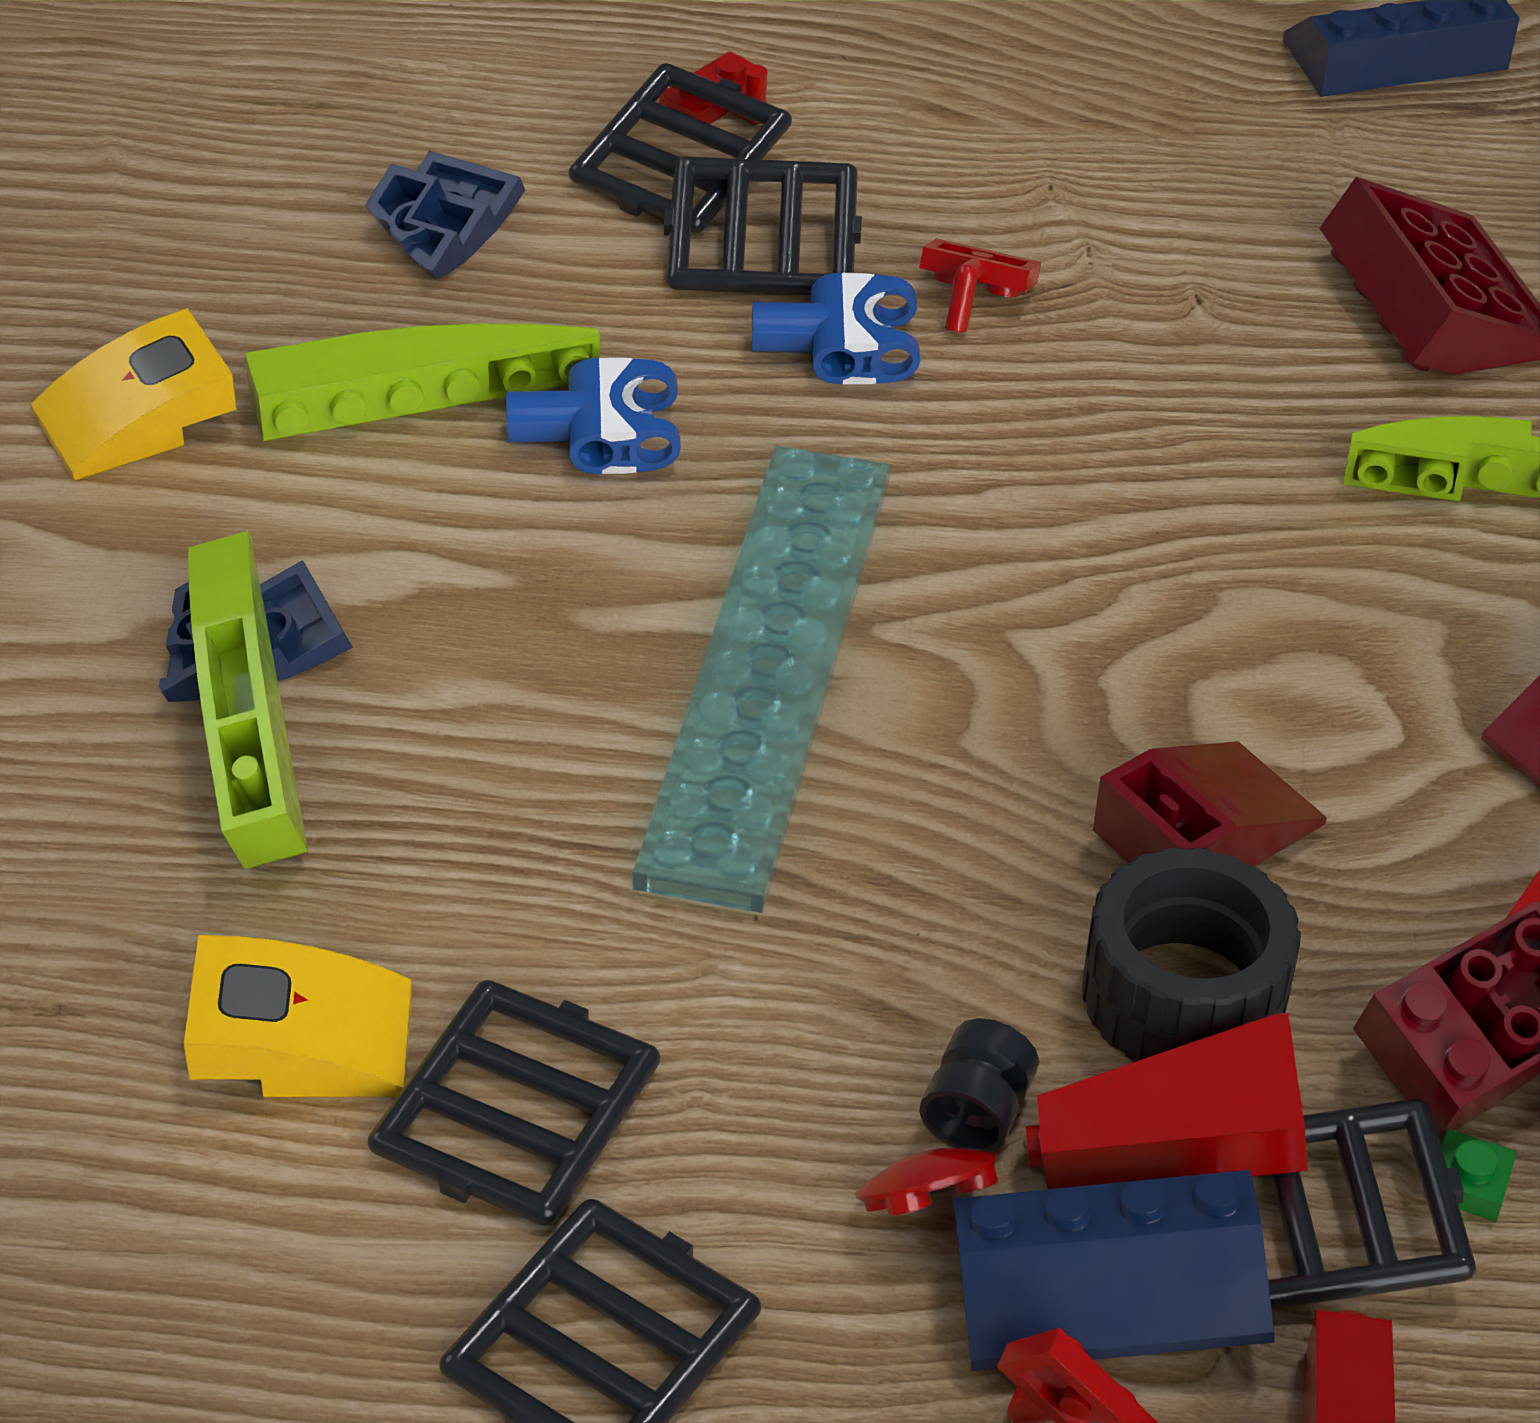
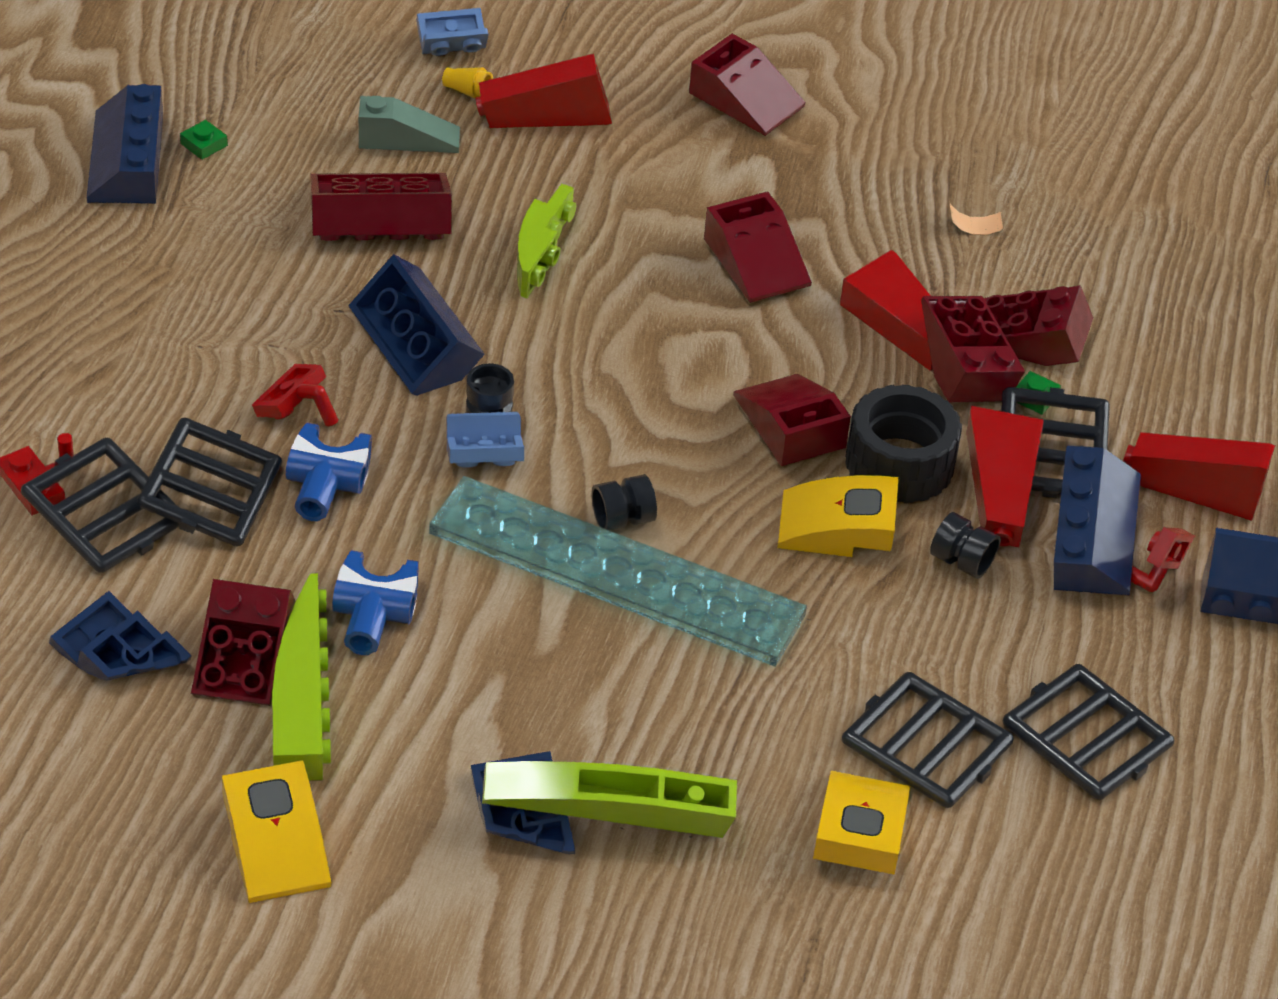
camera: 80 degrees left, 0 degrees up
(496, 284) = (241, 641): none -> dark red slope
(895, 635) = (626, 502): none -> black wheel
(907, 1182) = (1026, 577): red dish -> none
(970, 471) = (484, 438): none -> medium blue bracket
(992, 916) = (839, 515): none -> yellow slope
(1056, 453) = (489, 389): none -> black wheel
(1186, 365) = (415, 327): none -> dark blue slope
(1477, 106) = (203, 139): none -> green plate

